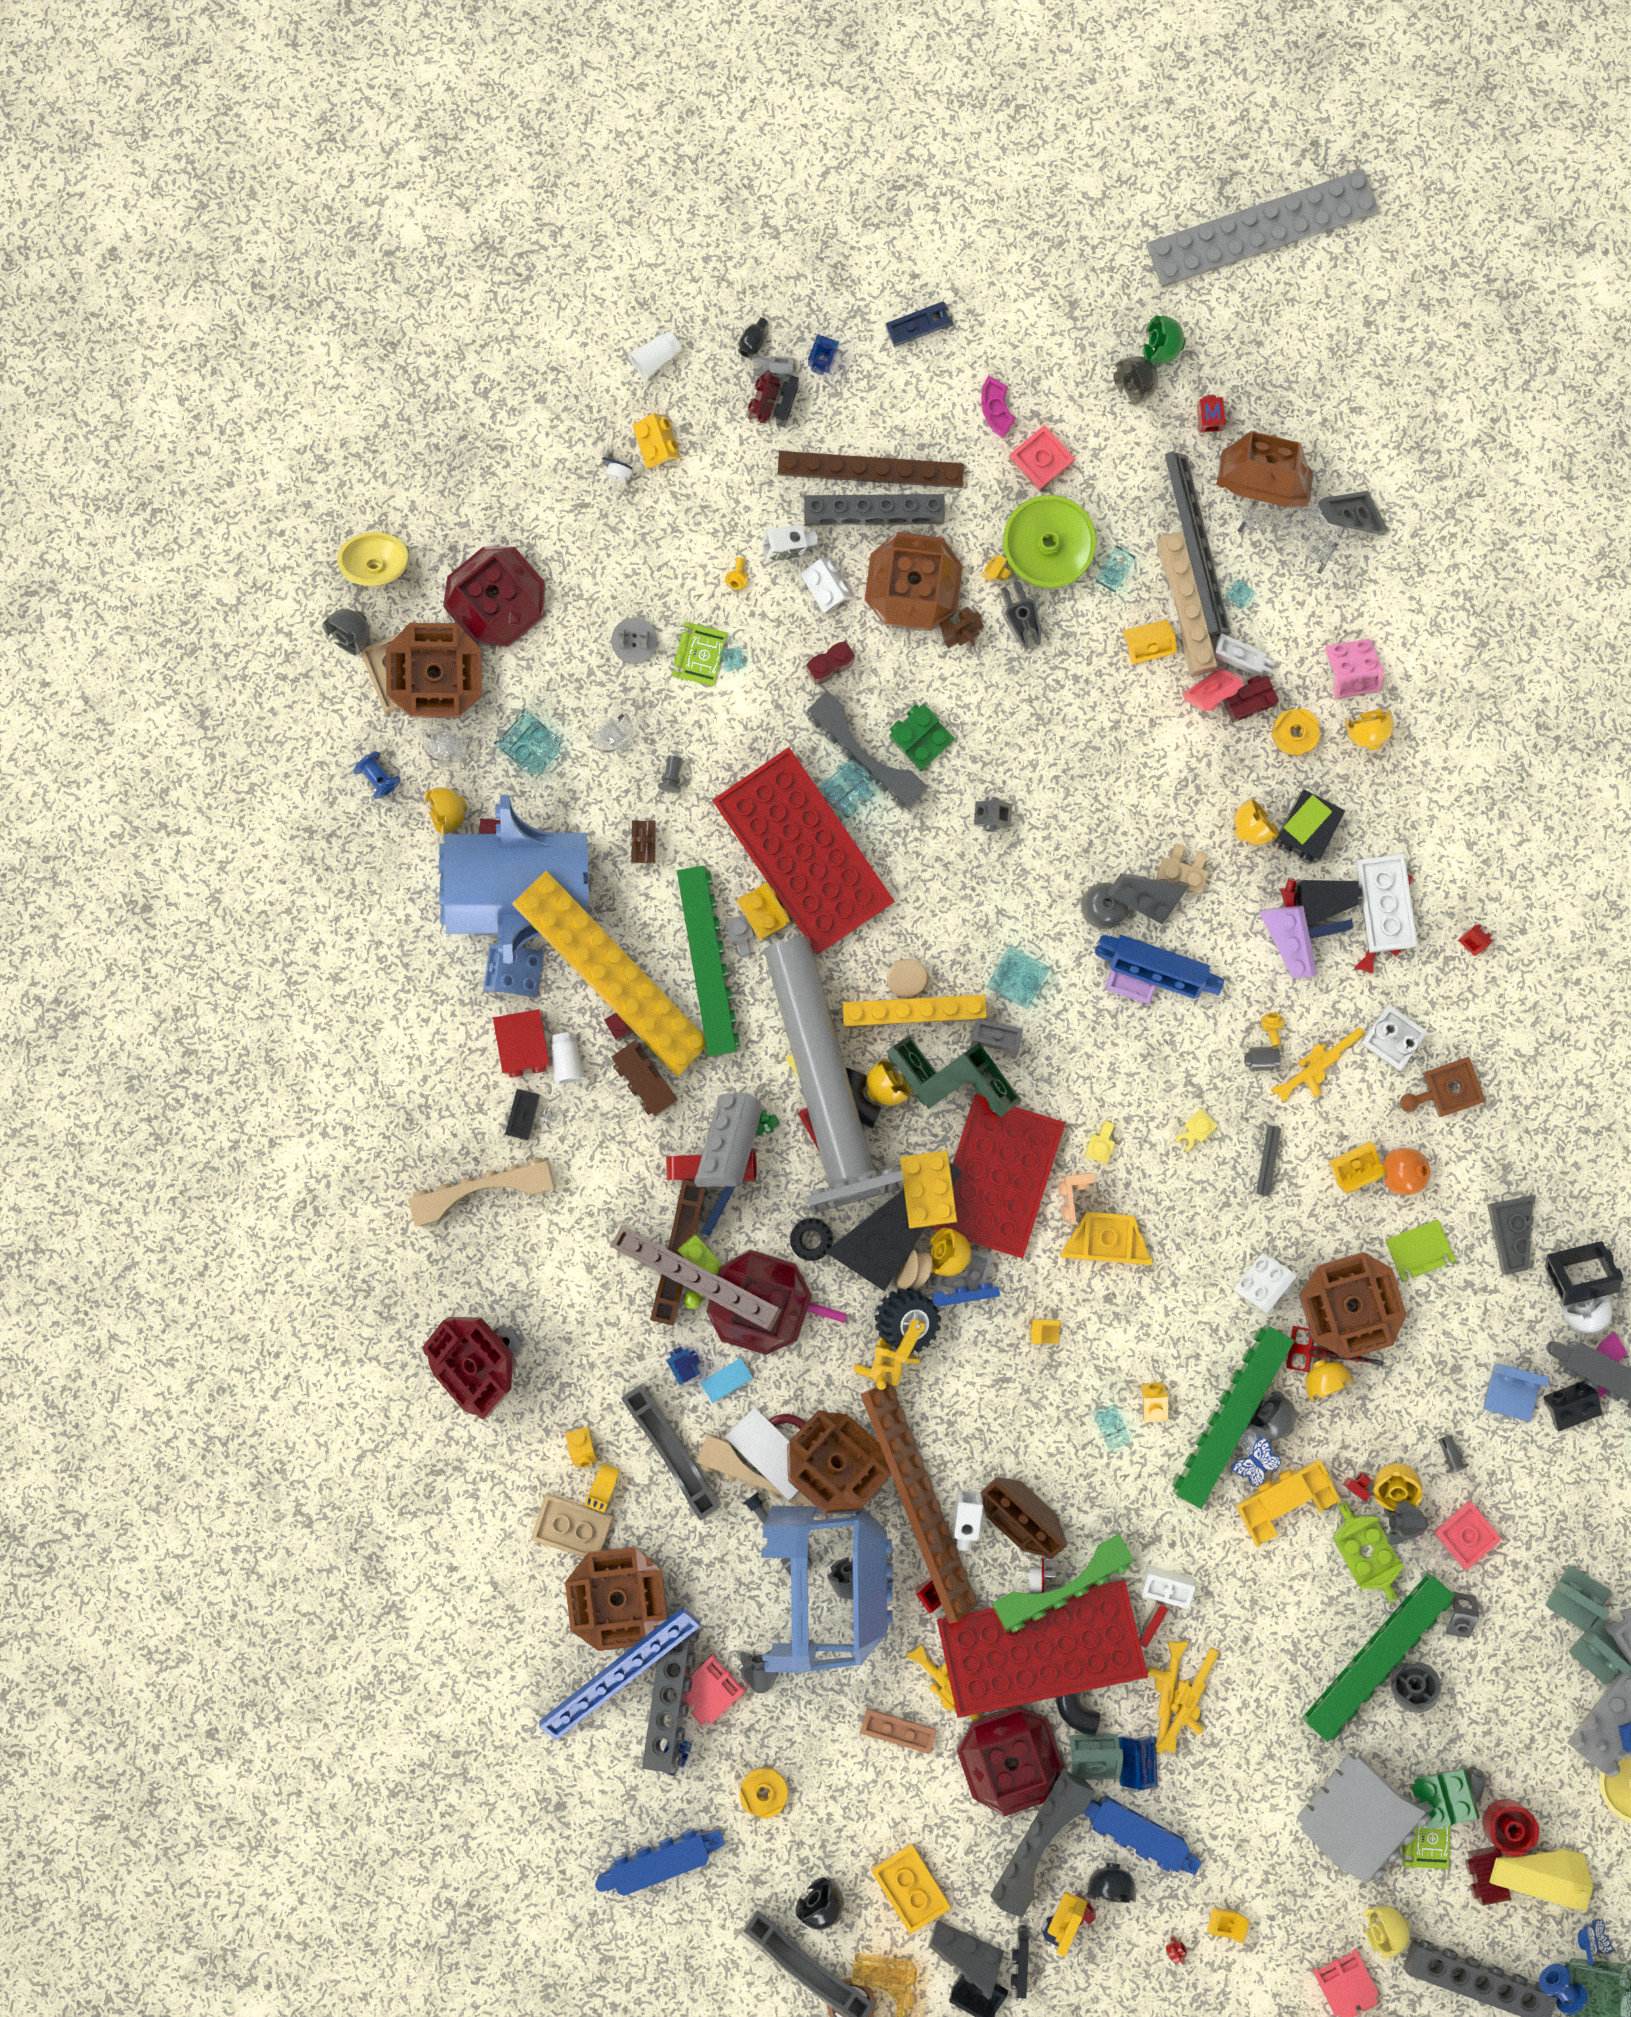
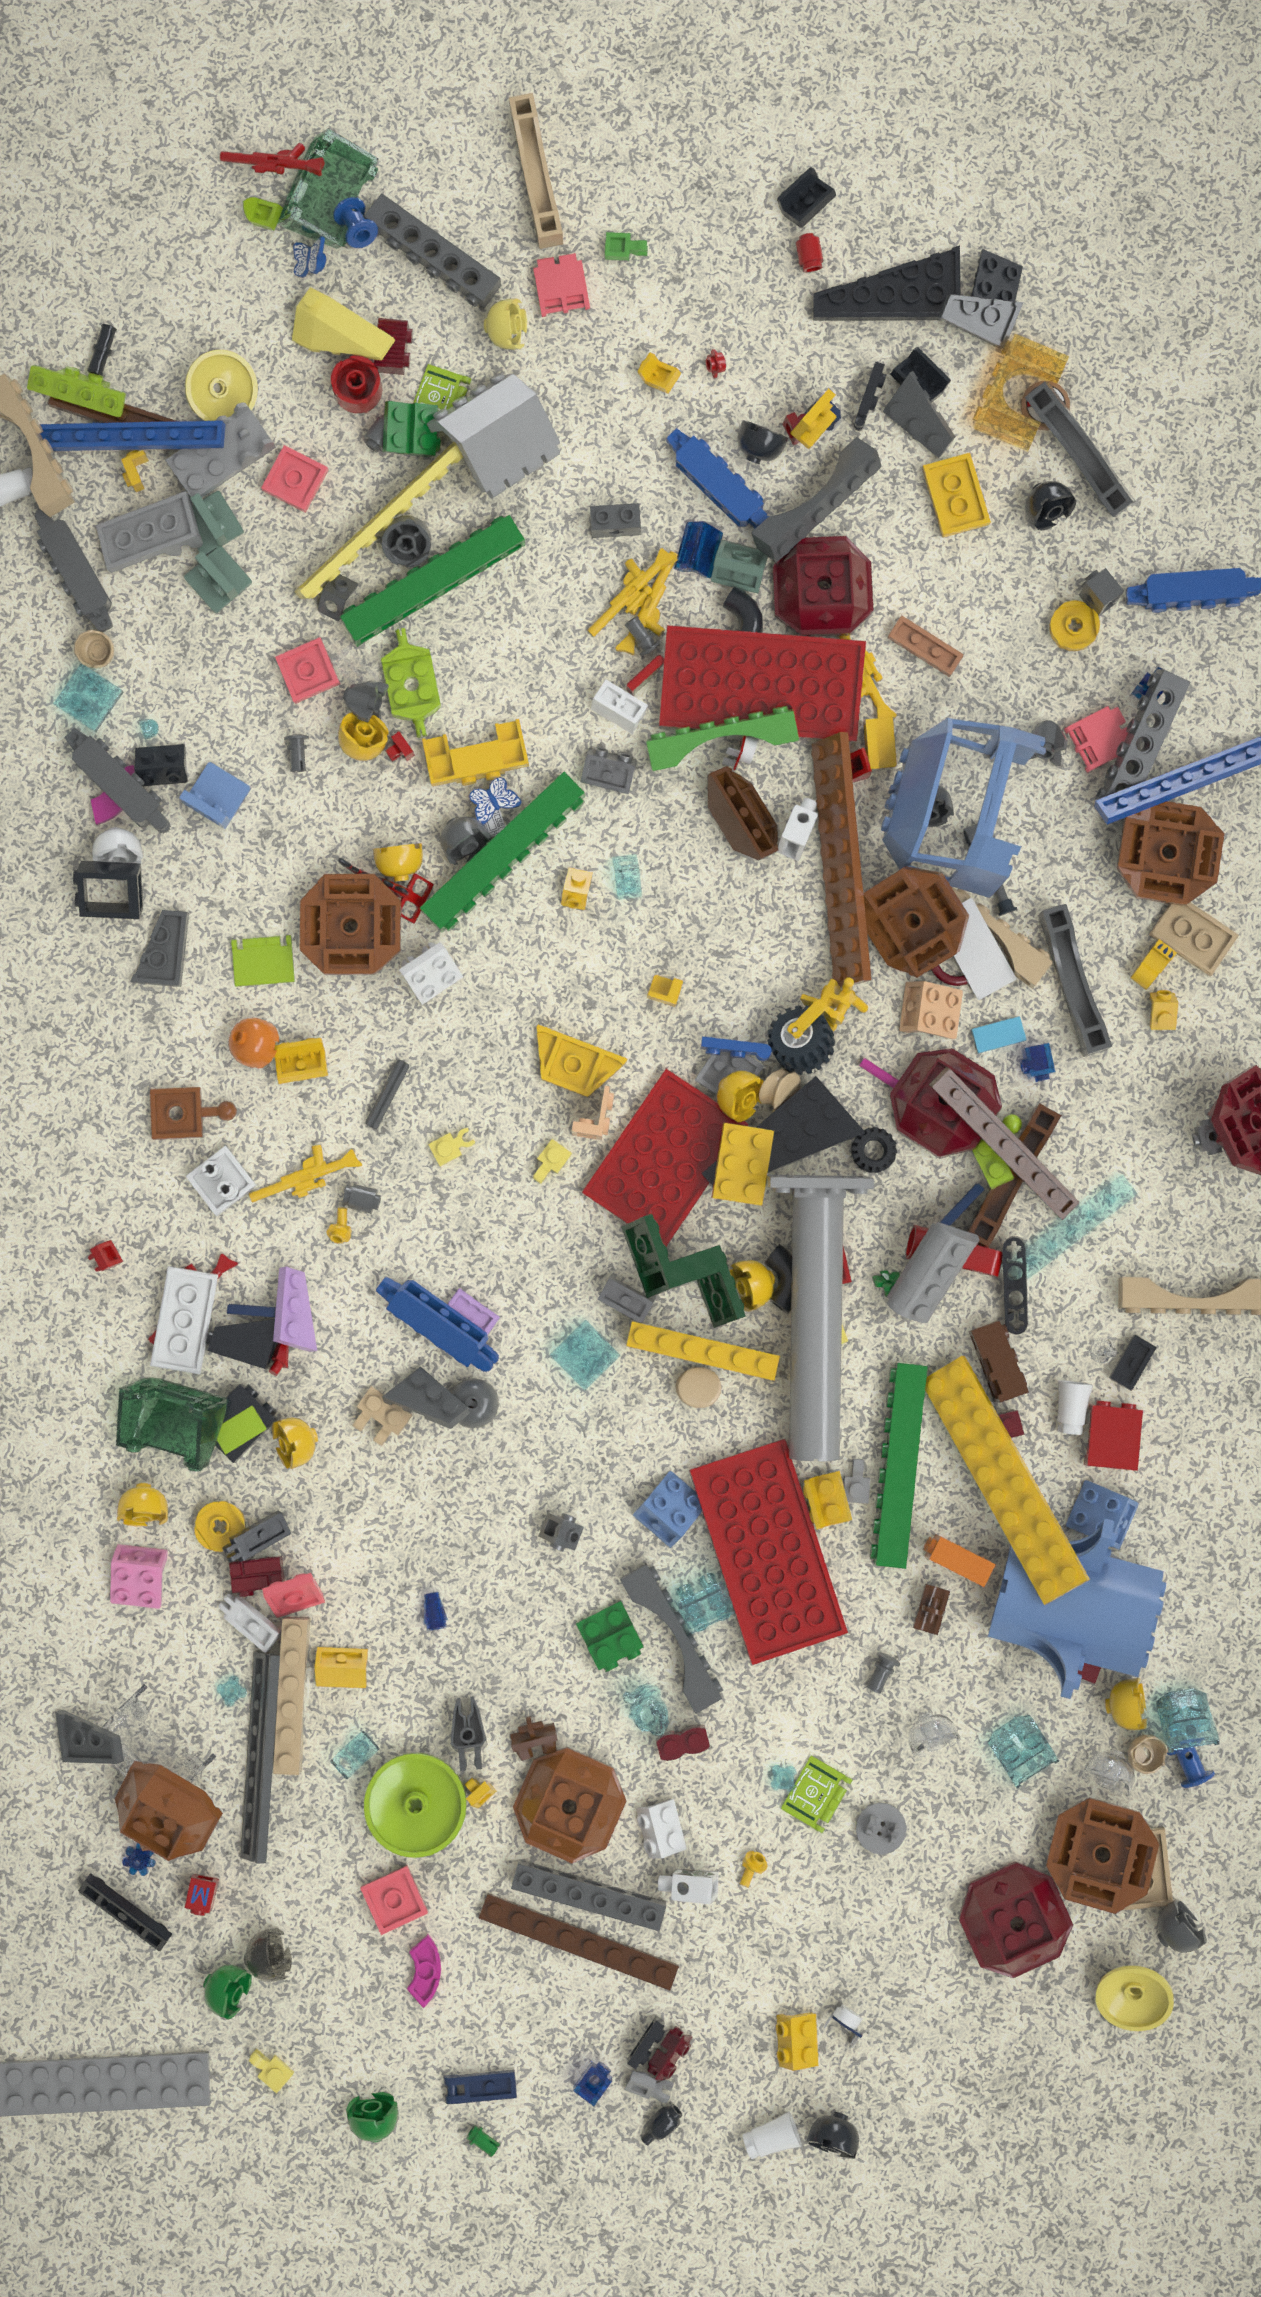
camera: 170 degrees left, 0 degrees up
(390, 810) = (1186, 1720): none -> clear light blue slope
(423, 766) = (1138, 1758): none -> tan hair
(601, 371) = (834, 2135): none -> black cylinder
(611, 1219) = (1075, 1226): none -> clear light blue tile
(631, 891) = (958, 1559): none -> orange window
(647, 1153) = (1015, 1285): none -> black beam
(749, 1833) = (1100, 591): none -> dark grey brick
(795, 1385) = (931, 1009): none -> light nougat bracket
(869, 683) = (648, 1709): none -> clear light blue hair
(901, 862) = (669, 1509): none -> medium blue bracket
(903, 280) = (482, 2141): none -> green pin
(914, 1624) = (880, 742): none -> yellow panel
(1004, 269) = (374, 2117): none -> green cylinder
(1083, 712) = (434, 1612): none -> clear blue cone
(1100, 285) = (273, 2072): none -> light yellow plate
(1159, 1523) = (608, 770): none -> flat silver bracket
(1166, 1661) = (642, 636): none -> dark grey pin
(1225, 1766) = (615, 520): none -> dark grey brick
(1243, 370) = (125, 1912): none -> black plate
(1260, 730) = (257, 1537): none -> hinge
(1274, 426) = (138, 1855): none -> clear blue plant
(1372, 811) = (170, 1420): none -> clear green windscreen
(1455, 1680) = (379, 522): none -> light yellow plate
(1538, 1717) = (294, 478): none -> coral plate
(1595, 1436) = (149, 728): none -> clear light blue hinge

